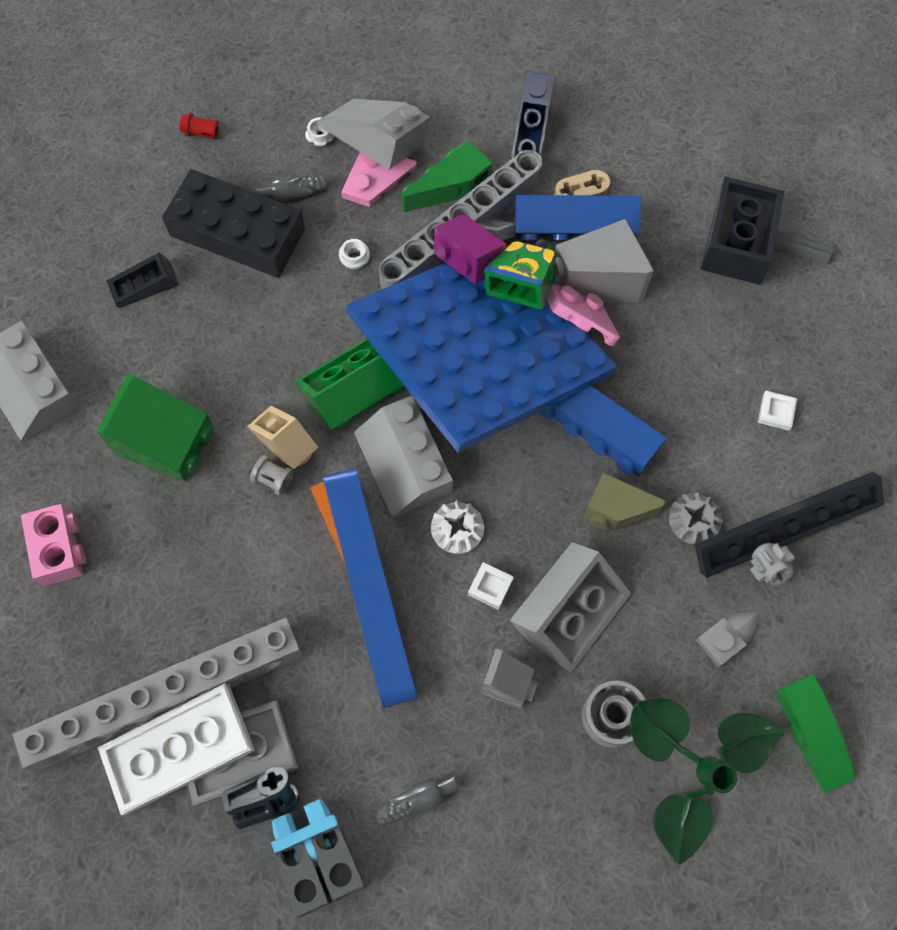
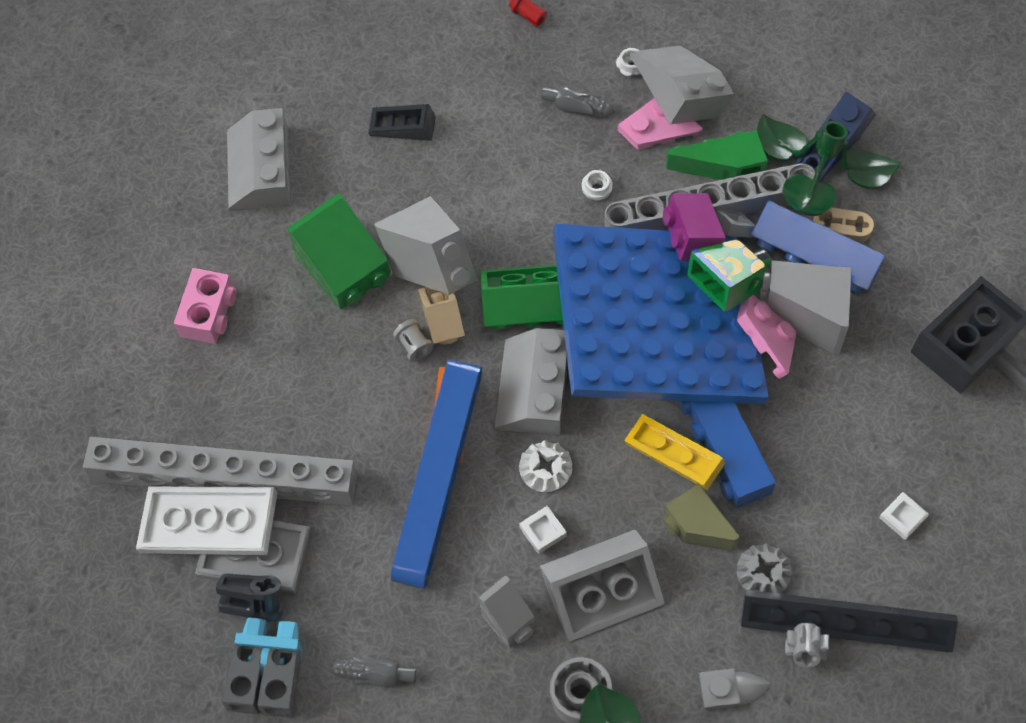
camera: 35 degrees right, 5 degrees down
(234, 223) = (507, 109): black brick -> none
(239, 383) = (426, 247): none -> light grey slope
(541, 174) = (809, 195): none -> dark green plant
(564, 455) = (675, 451): none -> yellow plate

